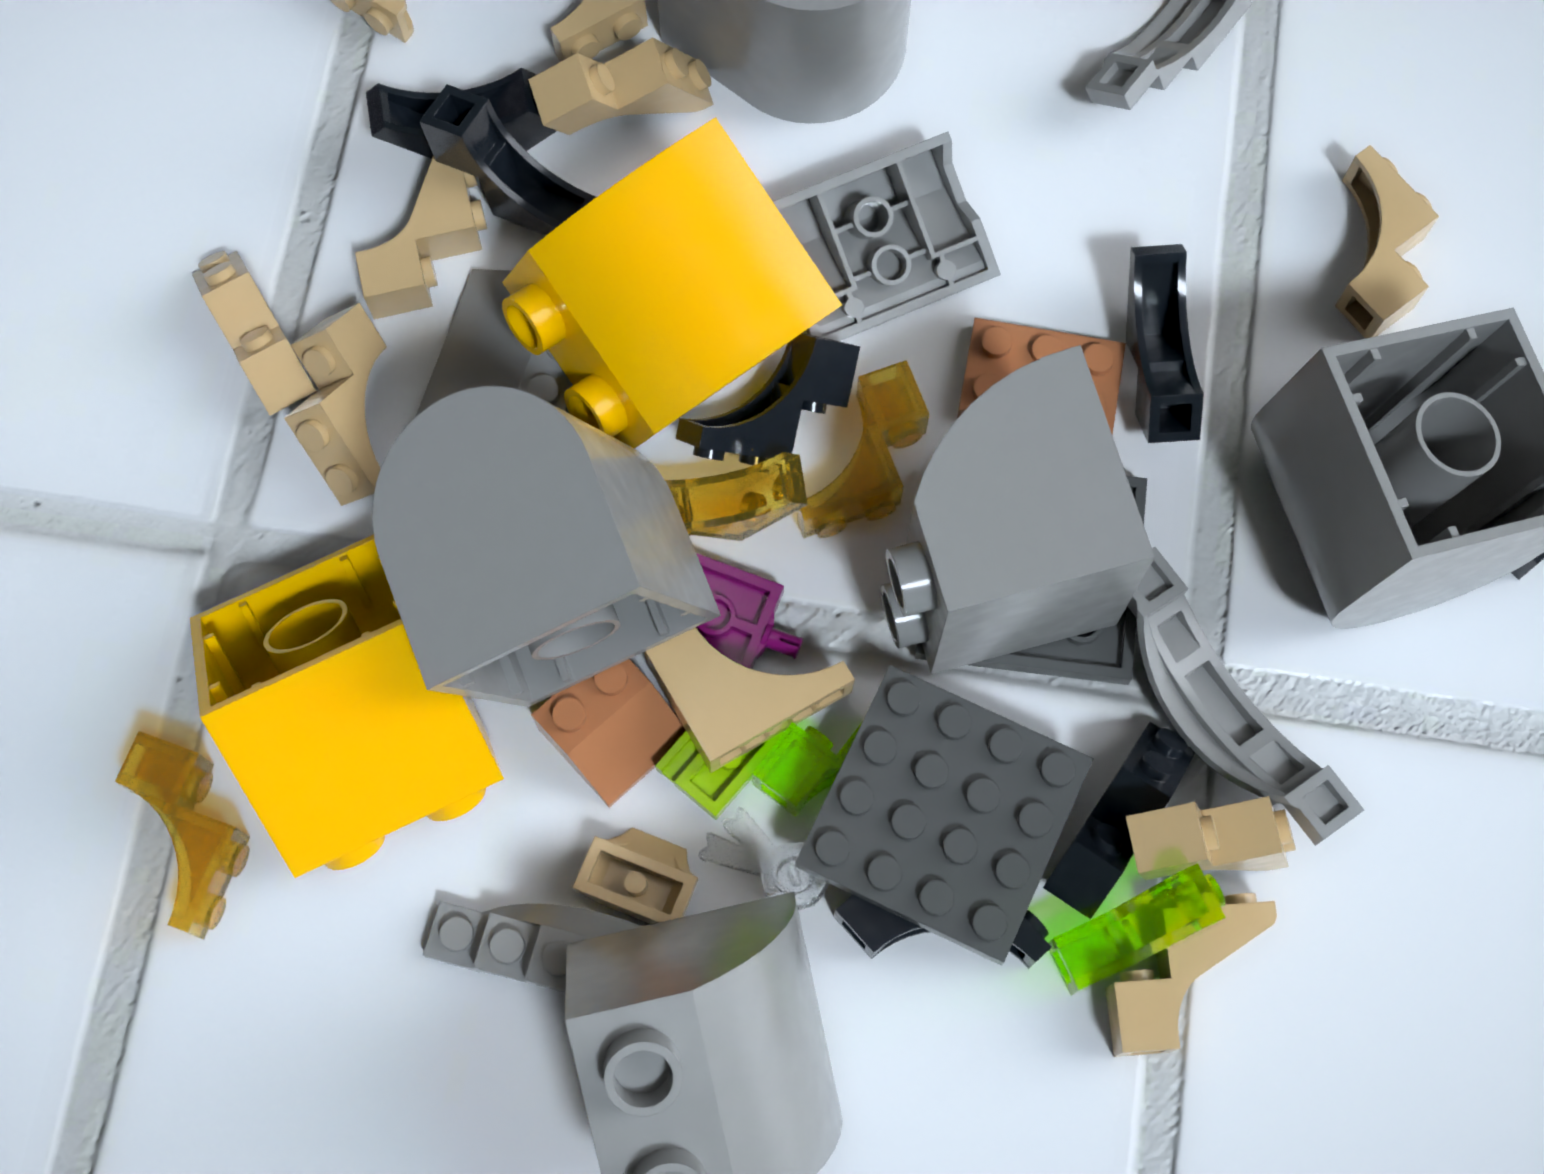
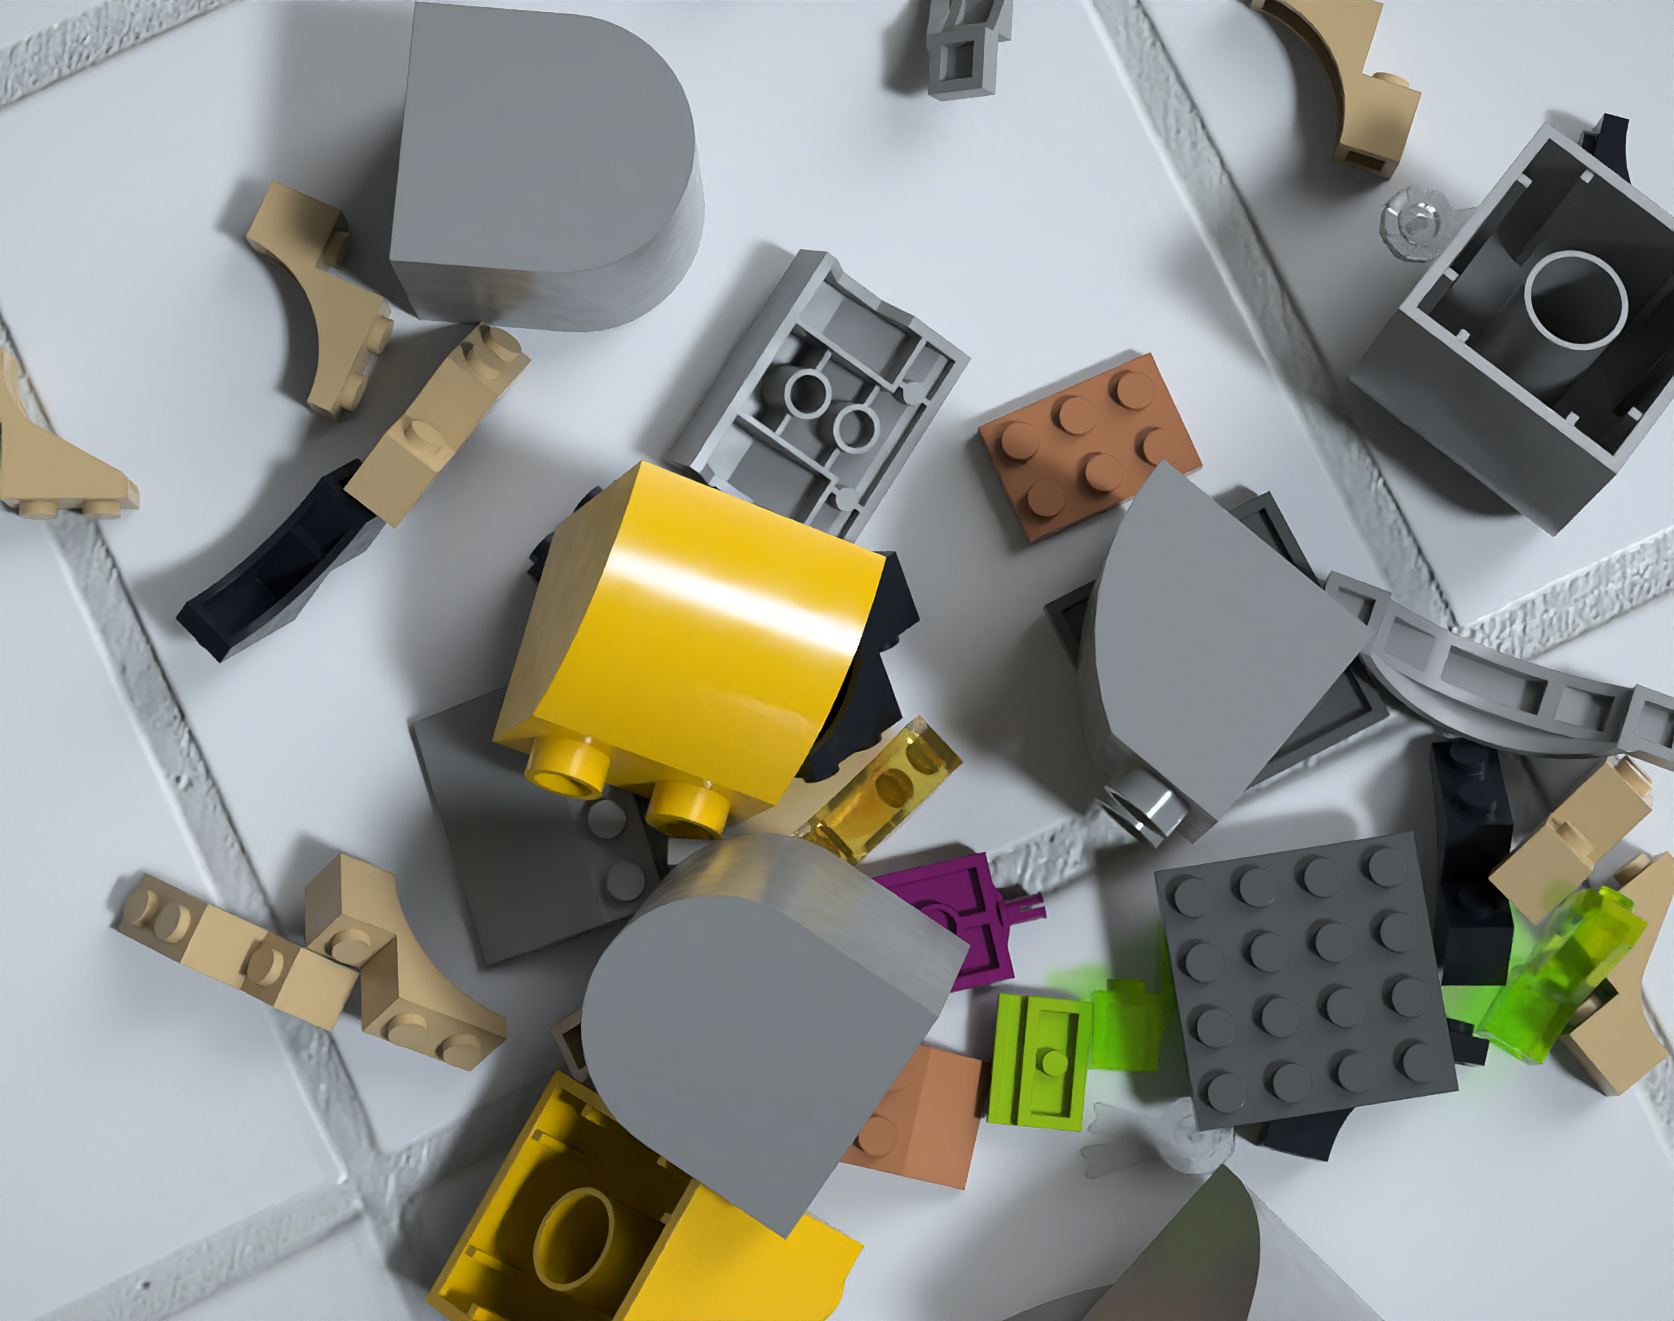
camera: 35 degrees left, 10 degrees up
(441, 226) = (349, 697): tan arch -> none
(518, 188) = (394, 604): black arch -> none
(638, 876) = (1048, 1239): tan slope -> none
(733, 706) = (1032, 1017): tan arch -> none
(870, 483) = (963, 592): clear yellow arch -> none
(1159, 340) = (1187, 332): black arch -> none

